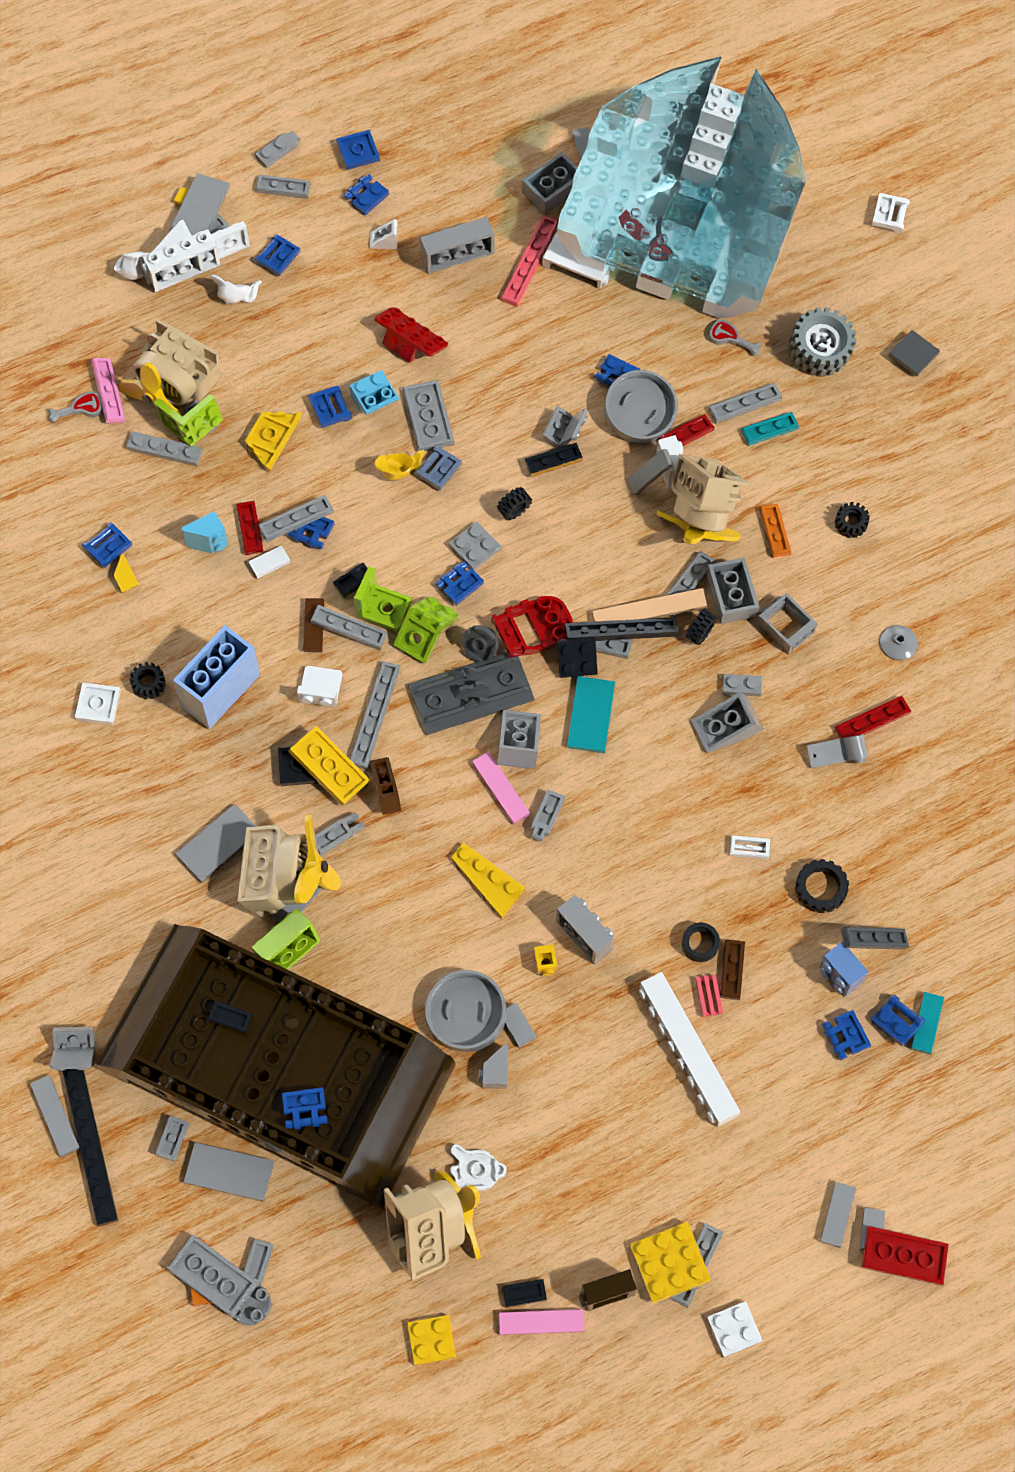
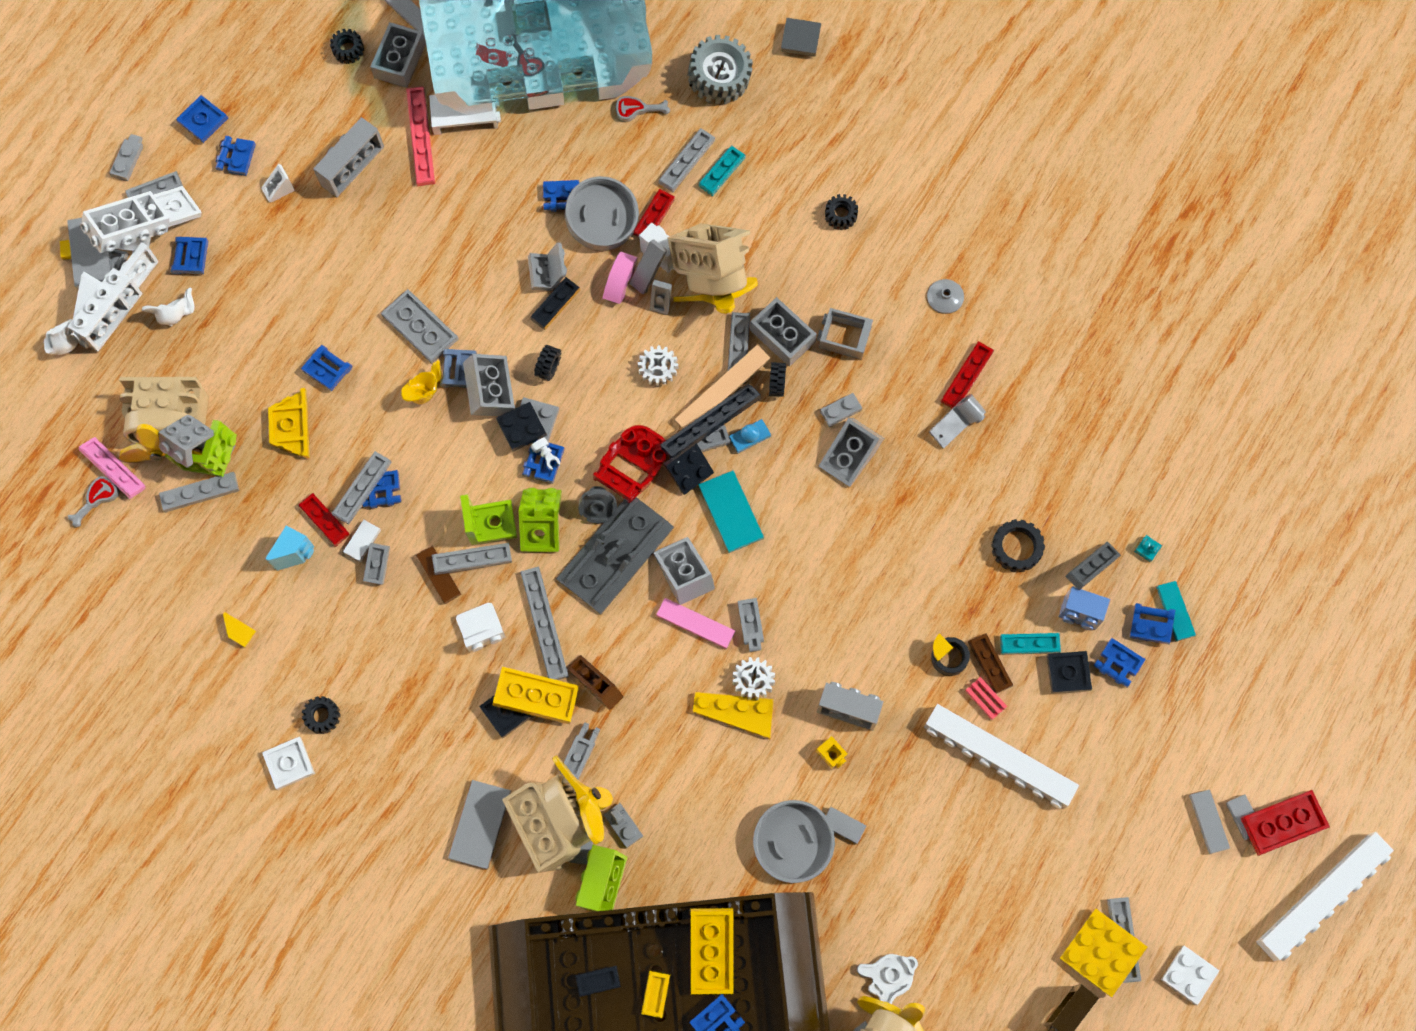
camera: 30 degrees left, 5 degrees up
(110, 548) = (208, 614): blue plate -> none
(176, 392) = (182, 437): none -> light grey bracket
(217, 677) = (386, 676): light blue brick -> none
(253, 201) = (137, 219): none -> white wedge
(269, 586) = (376, 563): none -> light grey hinge
(269, 1056) = (655, 994): none -> yellow tile
(334, 914) = (623, 825): none -> light grey hinge
(336, 1047) = (712, 951): none -> yellow plate
(351, 580) = (447, 513): black tile -> none
(373, 393) = (358, 334): medium azure slope -> none
(407, 336) = (356, 264): red bracket -> none
(452, 494) = (488, 385): none -> light grey brick
(458, 543) = (521, 426): none -> black plate
(464, 568) = (541, 445): none -> white piece
(495, 1070) = (852, 877): light grey slope -> none
(516, 145) = (345, 37): none -> black tyre
(523, 865) = (762, 680): none -> white gear
(601, 564) = (658, 357): none -> white gear
(623, 465) = (619, 276): none -> bright pink brick
(645, 502) = (660, 297): none -> light grey hinge
(648, 661) = (750, 436): none -> dark azure tile
(695, 927) = (941, 647): none -> yellow tile
(747, 854) = (922, 555): white tile -> none
(775, 530) = (782, 258): orange tile -> none
(778, 973) = (1030, 643): none -> teal tile
(796, 1016) = (1069, 672): none -> black plate
(899, 1337) = (1325, 896): none -> white brick
(938, 956) = (1148, 548): none -> teal tile

